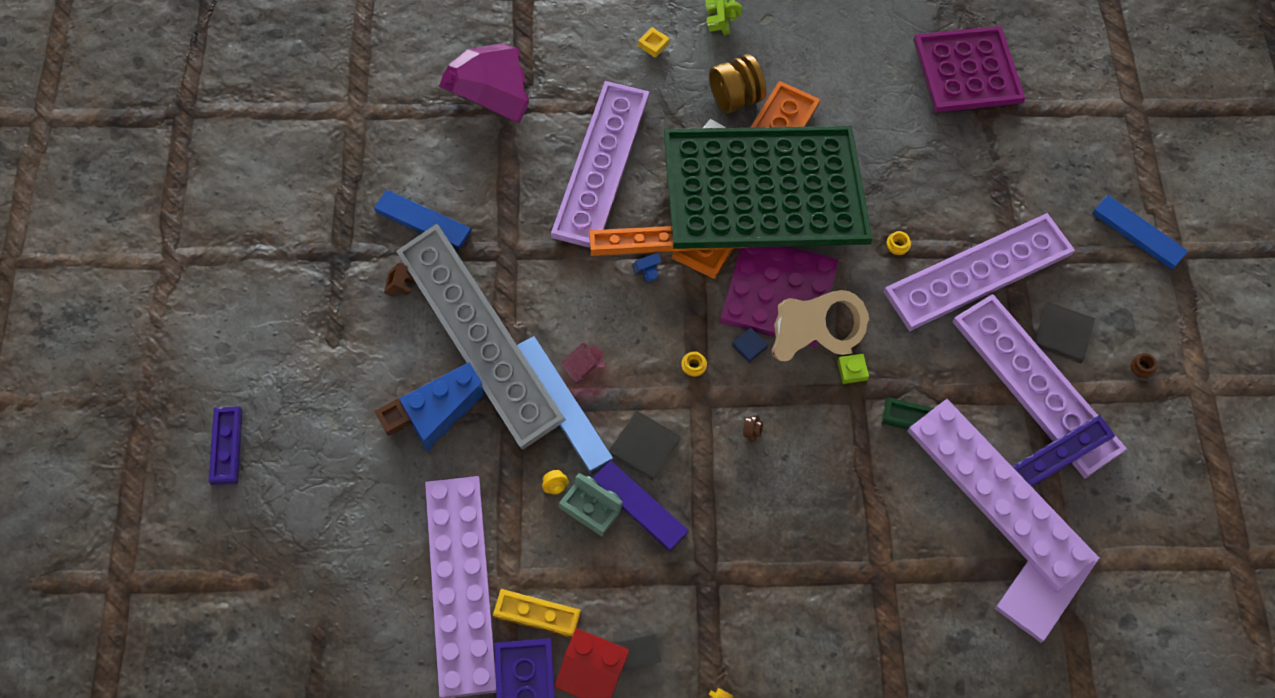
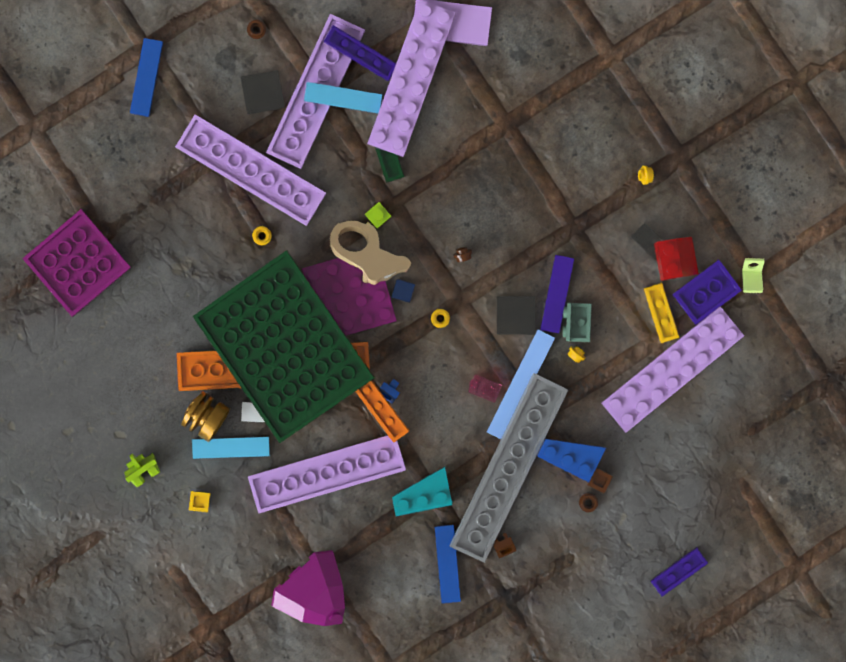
camera: 115 degrees left, 25 degrees up
(374, 389) = (592, 507): none -> reddish brown plate
(510, 235) = (424, 495): none -> teal wedge
(687, 98) = (231, 447): none -> medium azure tile
(1017, 402) = (342, 97): none -> medium azure tile

